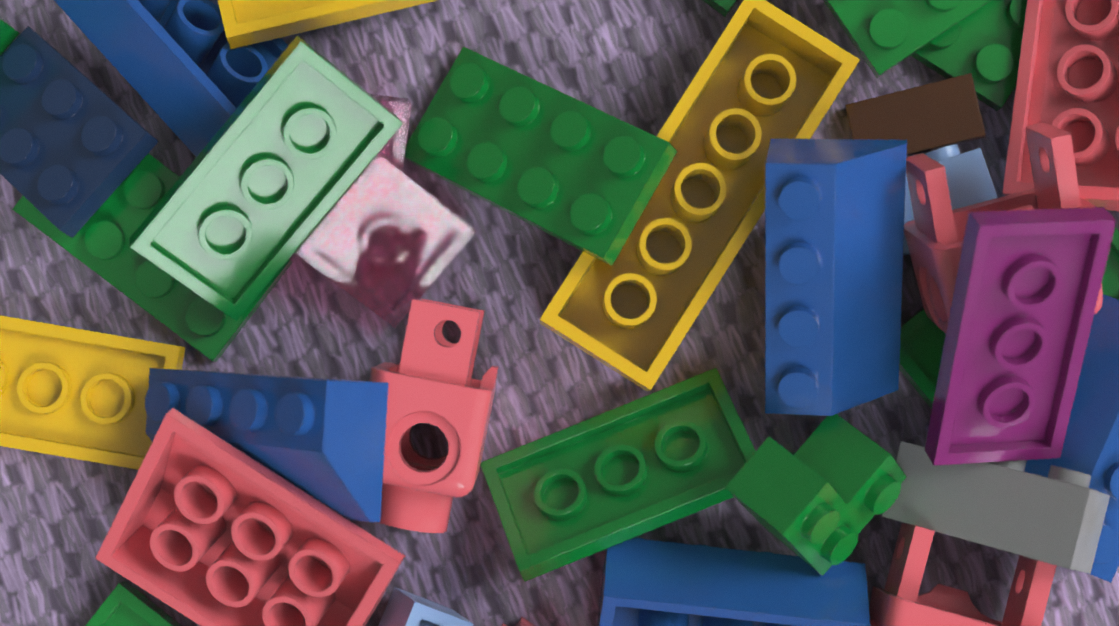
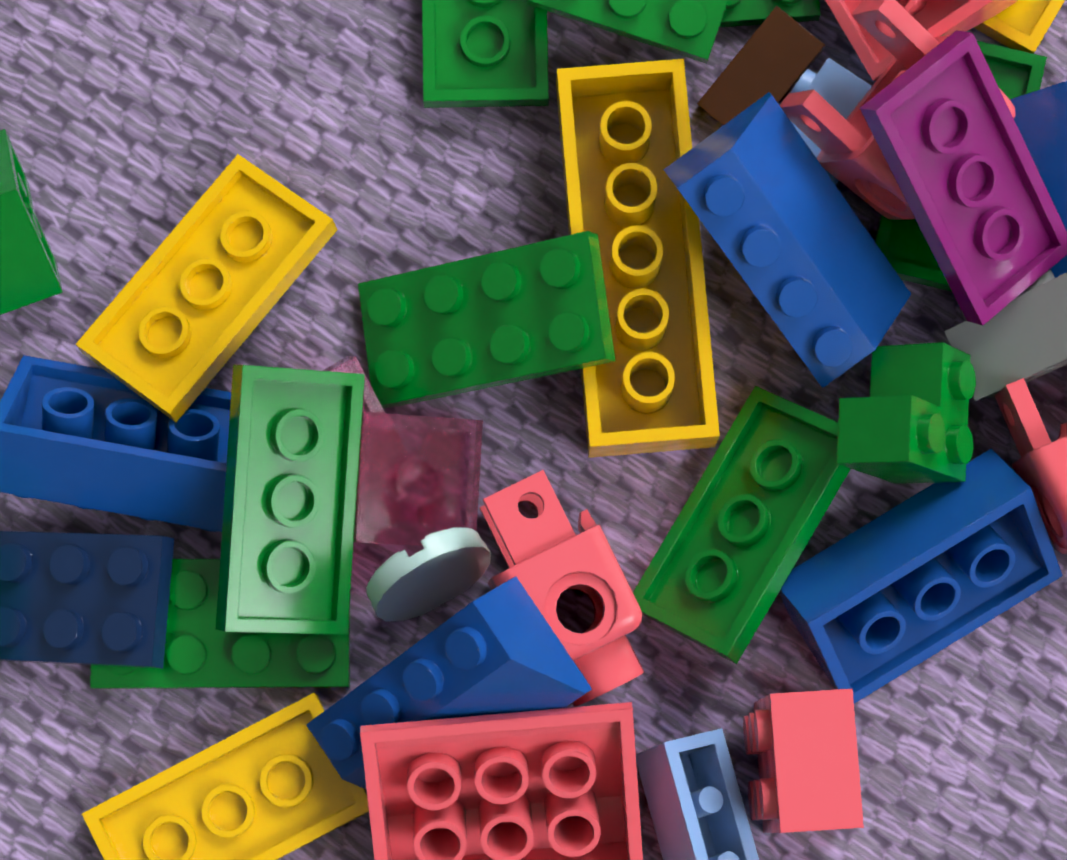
camera: 35 degrees left, 5 degrees down
(346, 326) = (439, 572): none -> light aqua tile

